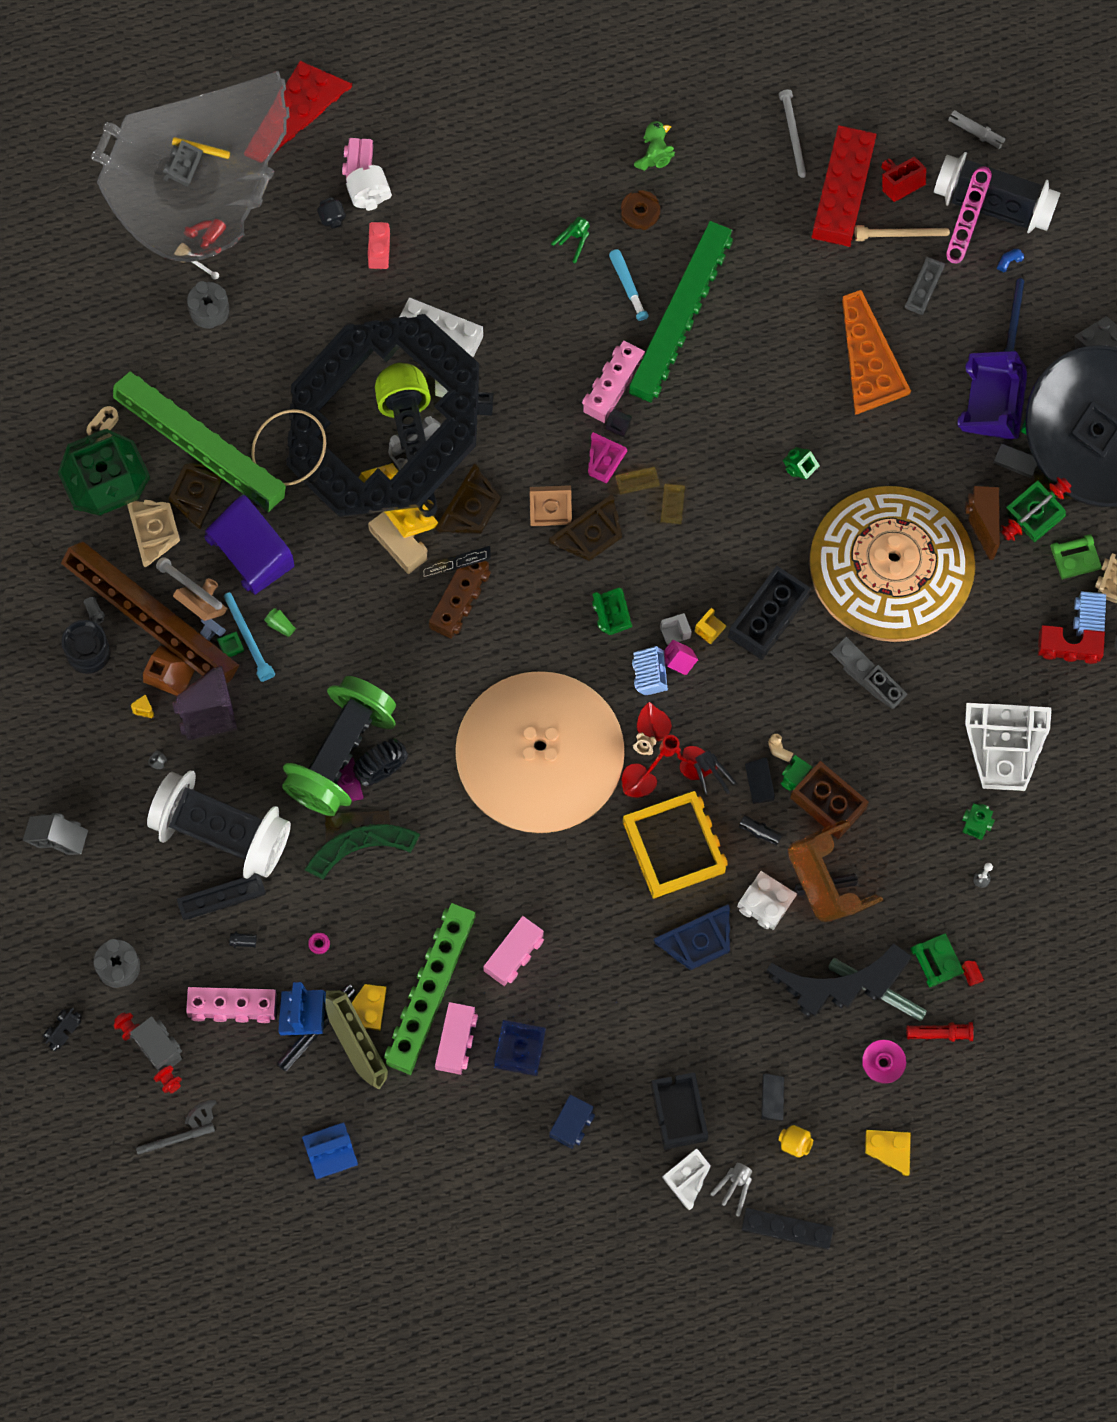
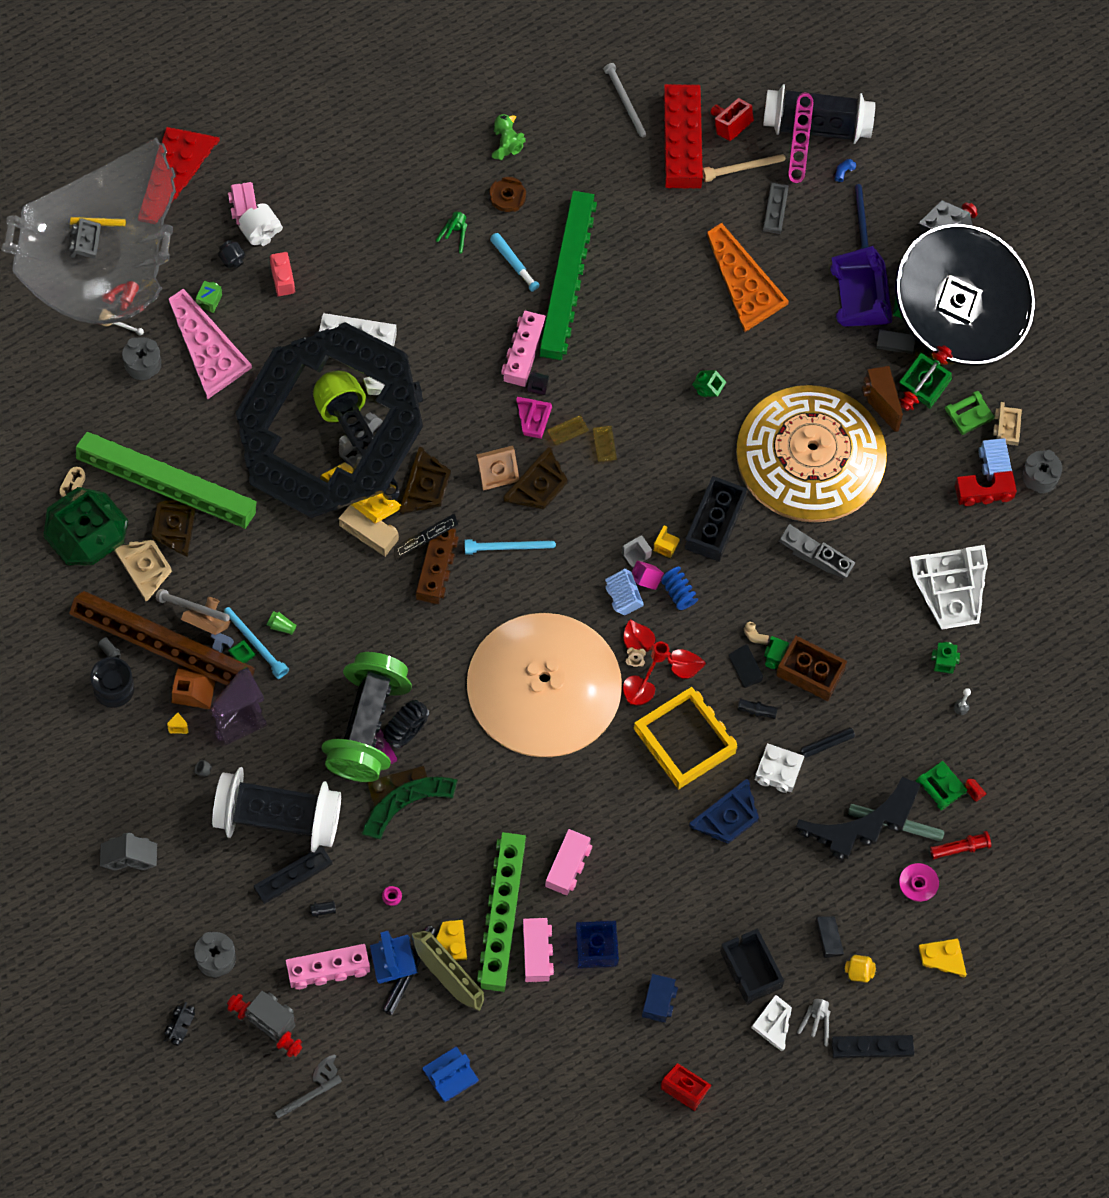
camera: 15 degrees left, 5 degrees down
(250, 545) = (237, 559): dark purple windscreen -> none
(283, 313) = (211, 351): none -> bright pink wing
(295, 411) = (258, 434): tan piece -> none
(296, 253) = (209, 296): none -> bright green brick
(502, 585) = (472, 547): none -> medium azure piece
(575, 1223) = (685, 1086): none -> red slope
(611, 611) = (576, 548): green bracket -> none
(708, 680) = (677, 589): none -> blue piece
(708, 761) = (695, 659): black plant -> none
(816, 881) = (820, 739): clear orange windscreen -> none
(976, 129) = (792, 66): light grey pin -> none

